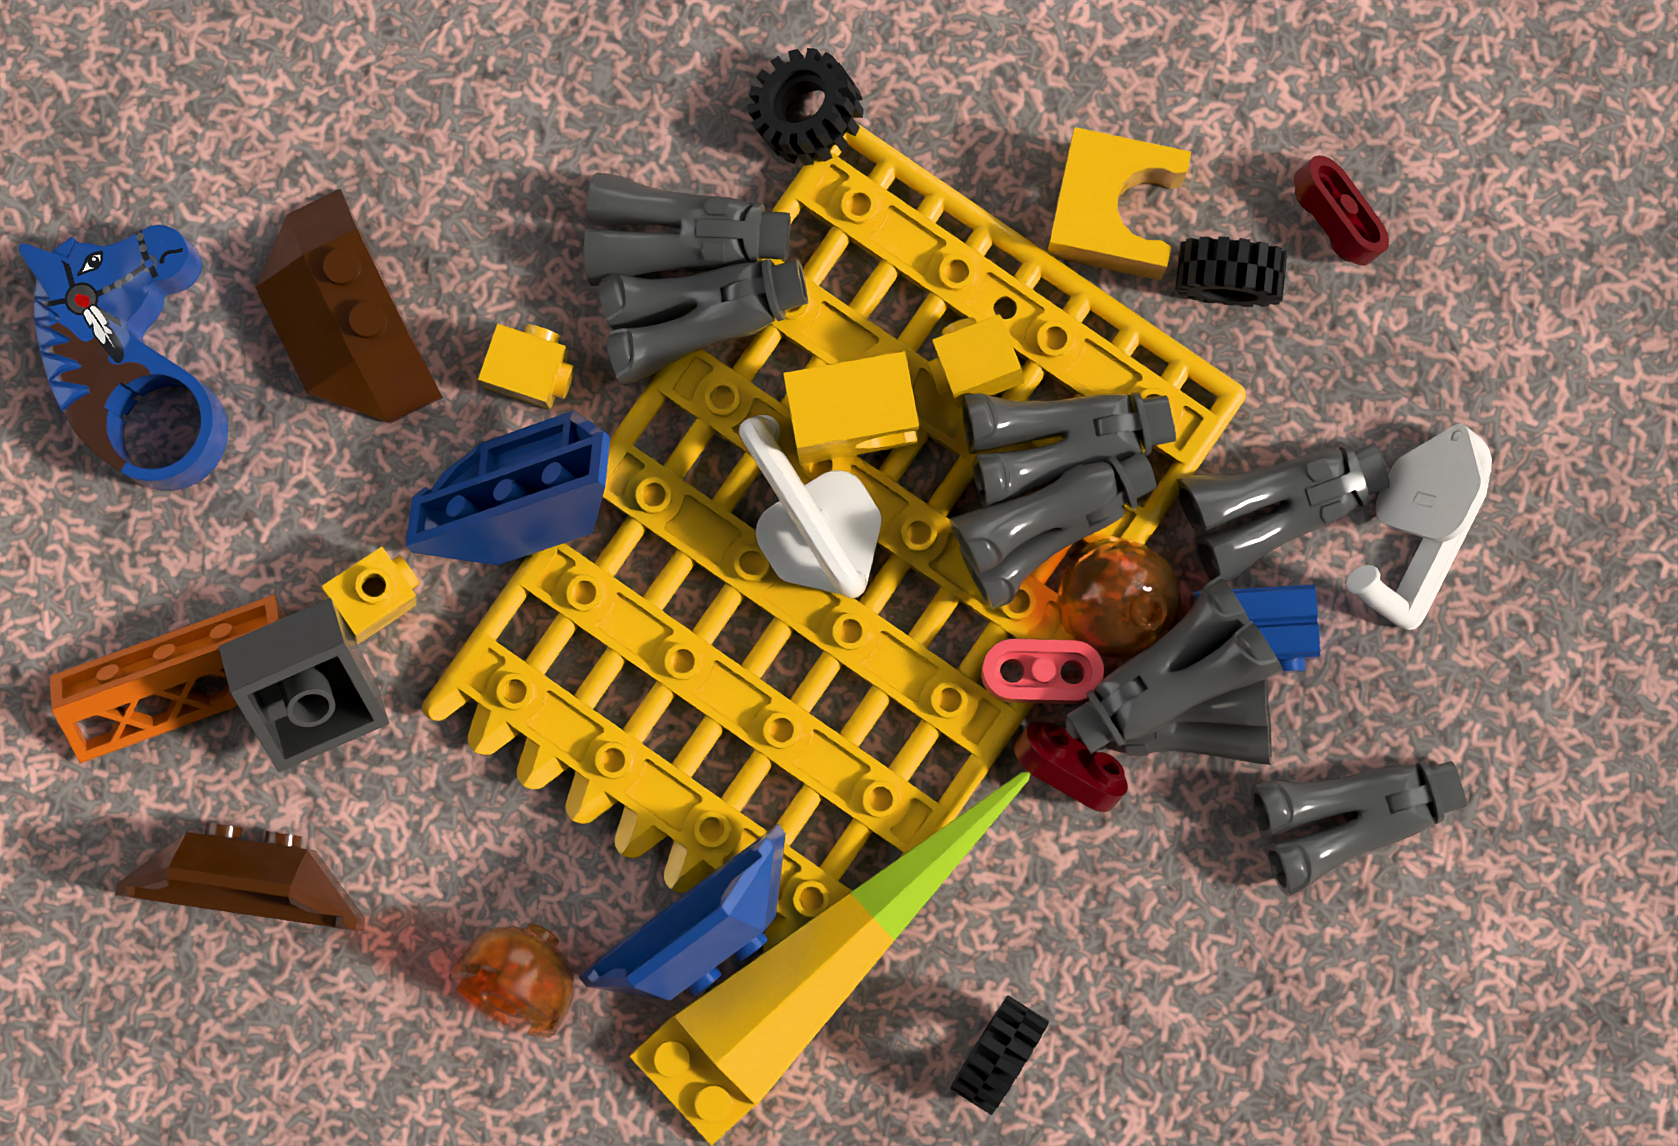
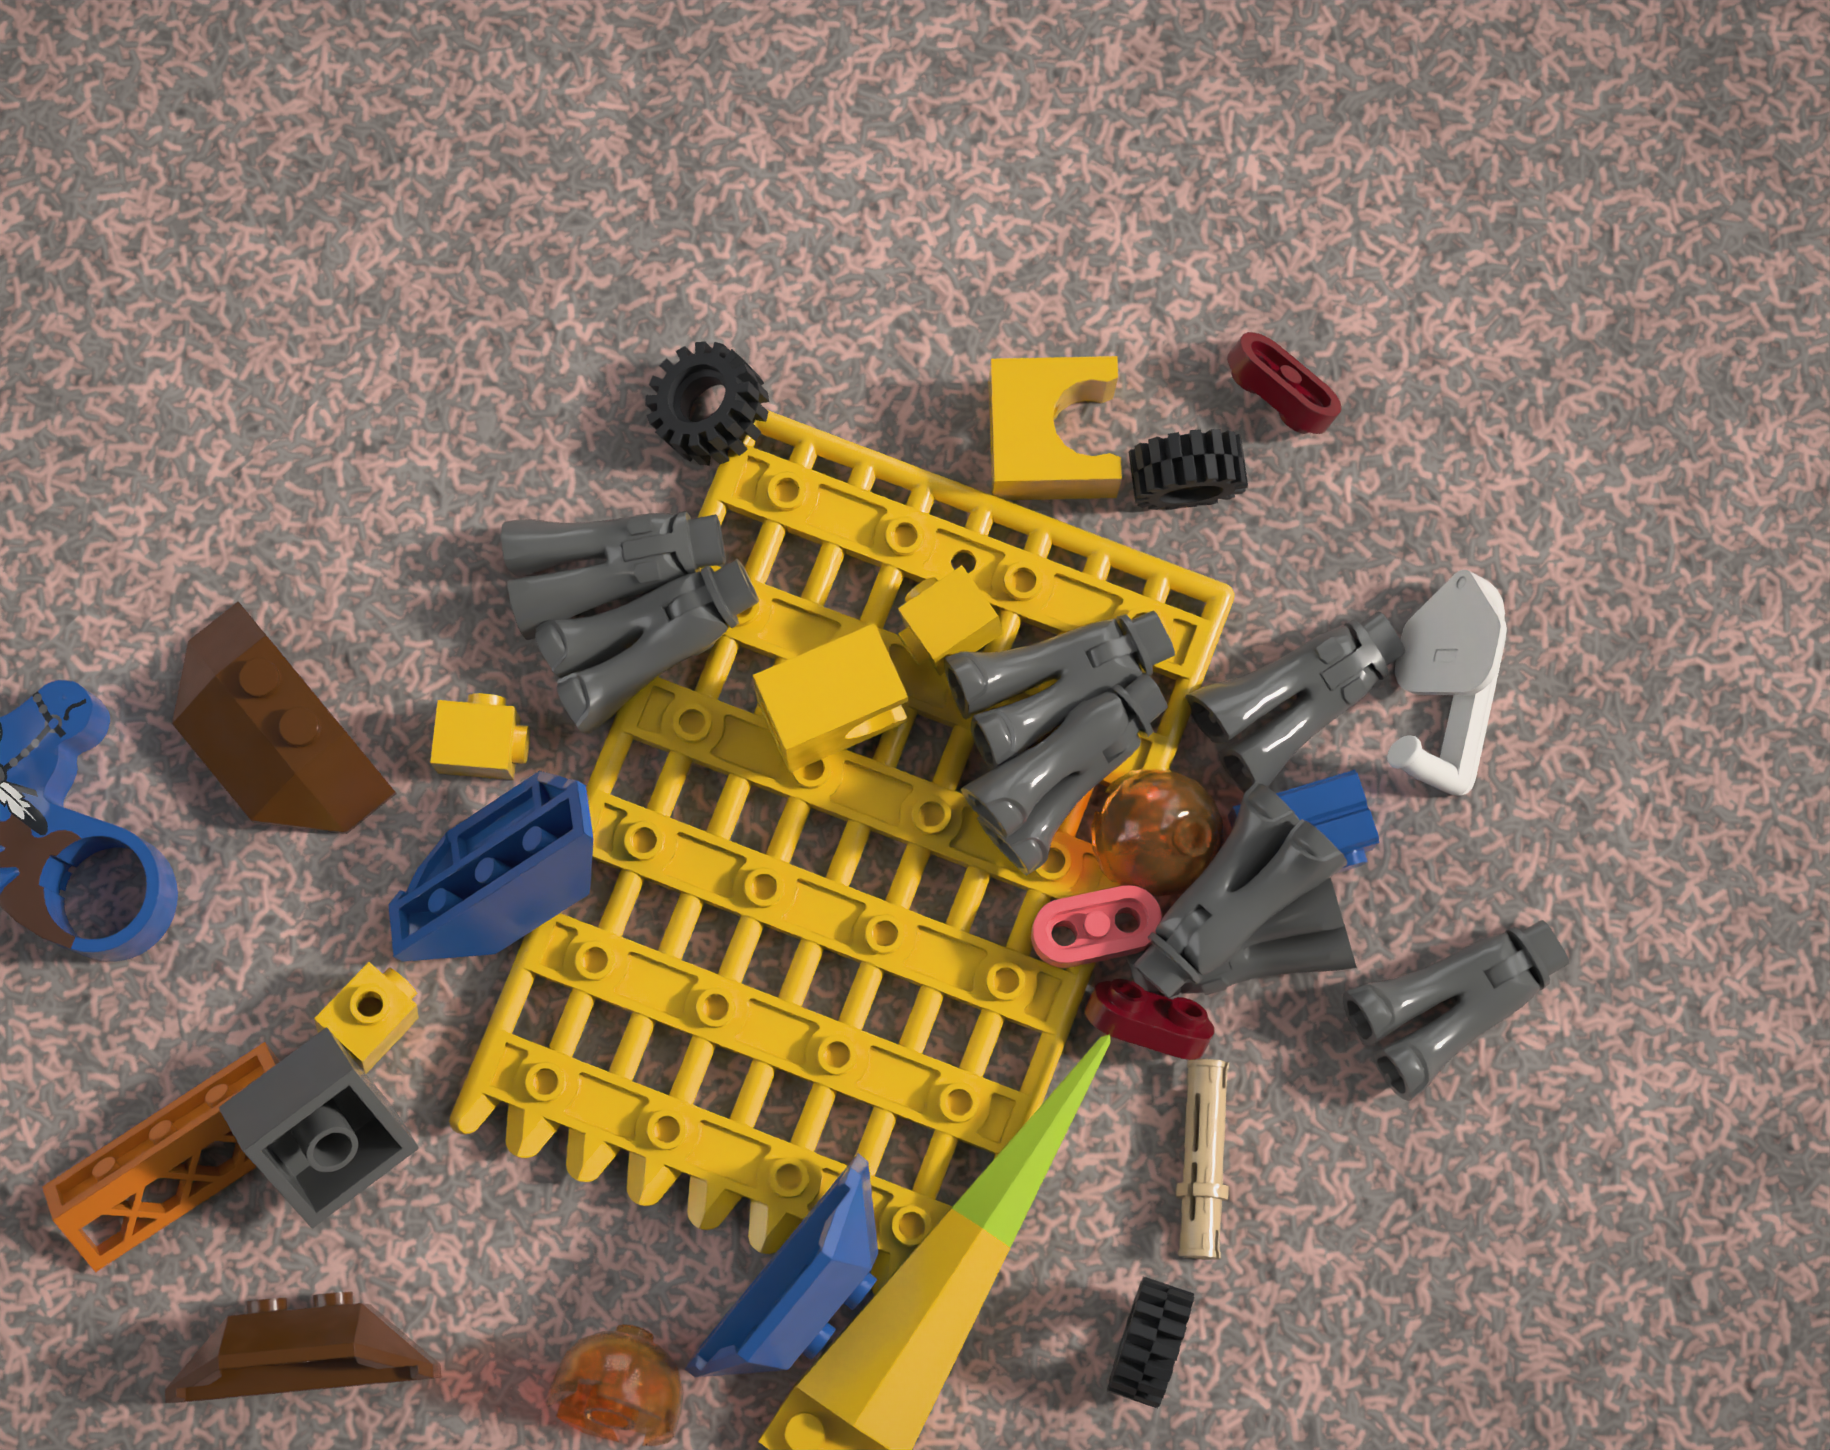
camera: 20 degrees left, 5 degrees down
(819, 530) = (828, 835): white piece -> none
(1089, 902) = (1203, 1160): none -> tan pin

